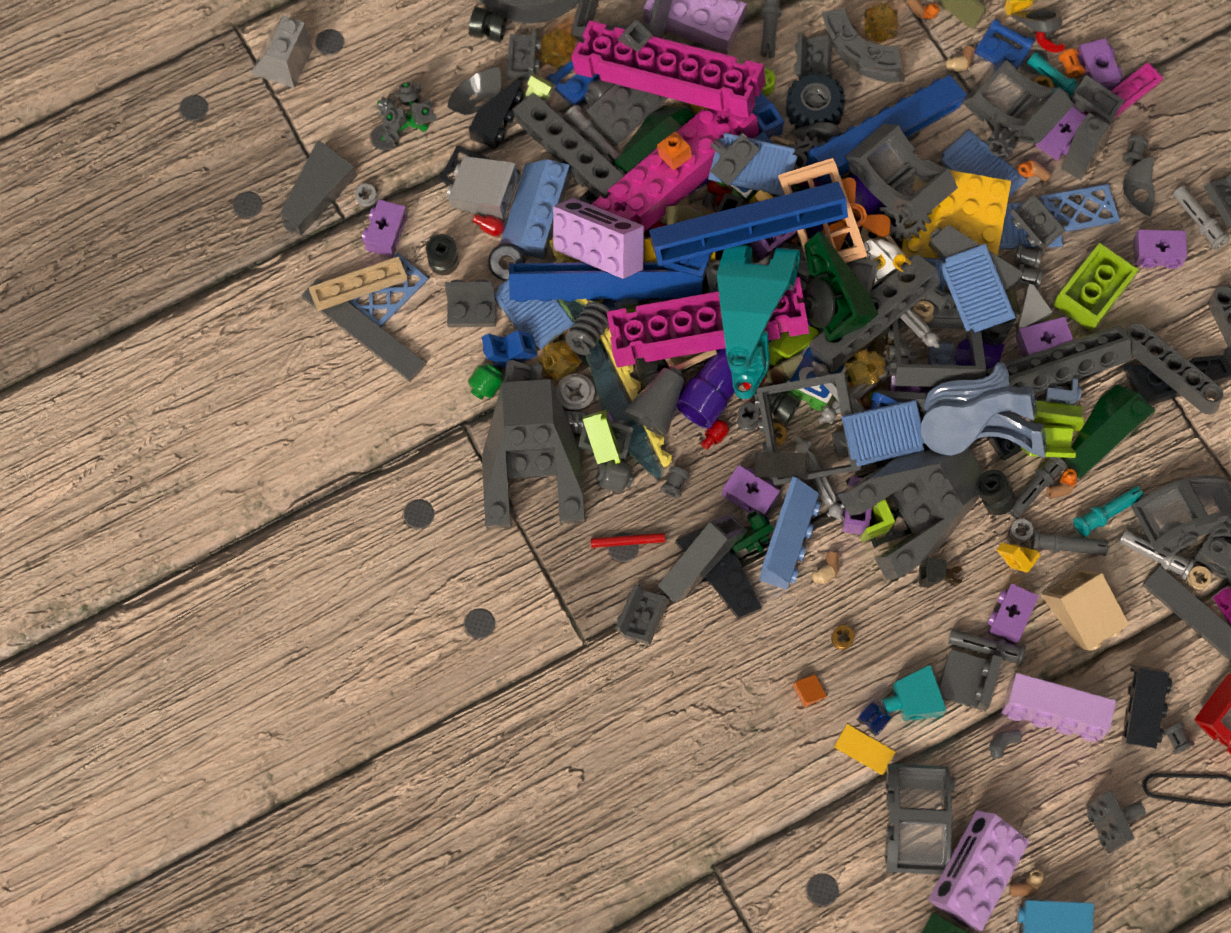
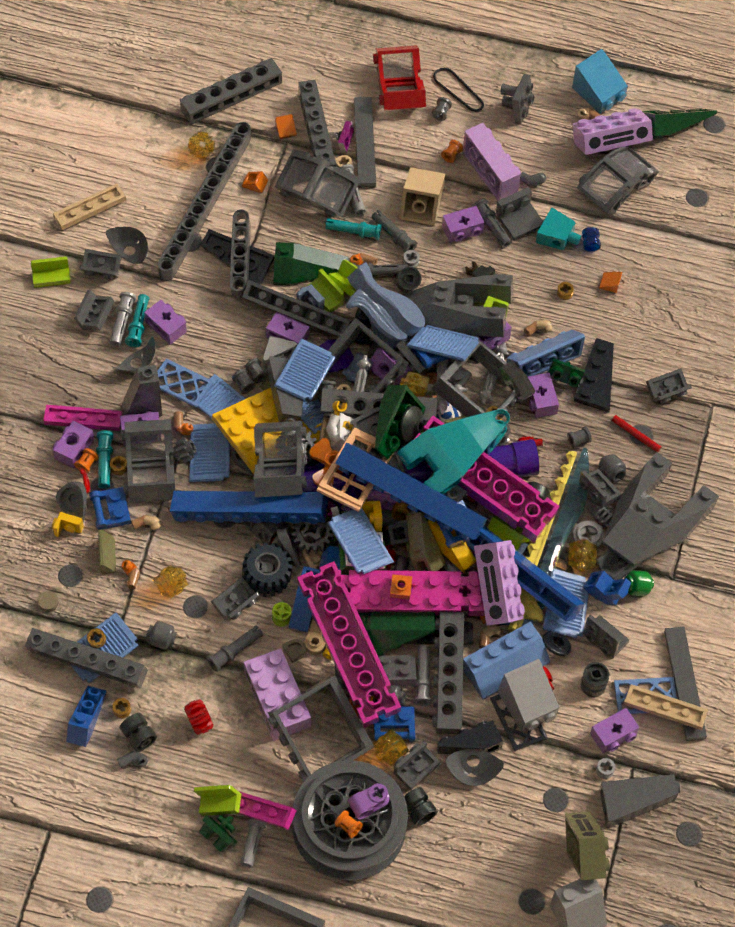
camera: 140 degrees left, 10 degrees down
(312, 81) = (586, 846): none -> olive brick
(397, 120) = (529, 786): dark grey plant -> none
(540, 87) = (427, 729): yellowish green bracket -> none
(587, 328) = (551, 547): dark grey piece -> none
(602, 437) = (605, 479): panel -> none
(635, 36) = (350, 678): dark grey slope -> none
(657, 401) = (556, 470): dark grey cone -> none
(702, 557) = (608, 376): dark grey slope -> none
(733, 159) = (370, 551): dark grey plate -> none
(860, 55) = (209, 562): dark grey window -> none
(864, 749) = (609, 236): yellow sticker -> none
(1018, 557) = (428, 244): yellow bracket -> none
(1037, 222) = (219, 390): dark grey bracket -> none
(1095, 287) = (229, 329): lime brick -> none
(1096, 99) = (107, 417): dark grey bracket -> none
(1113, 691) = (452, 151): none -> orange bush
(1135, 149) = (118, 382): dark grey bush -> none
(1146, 706) = (439, 131): black wedge -> none
(1204, 251) = (136, 327): none -> teal pin

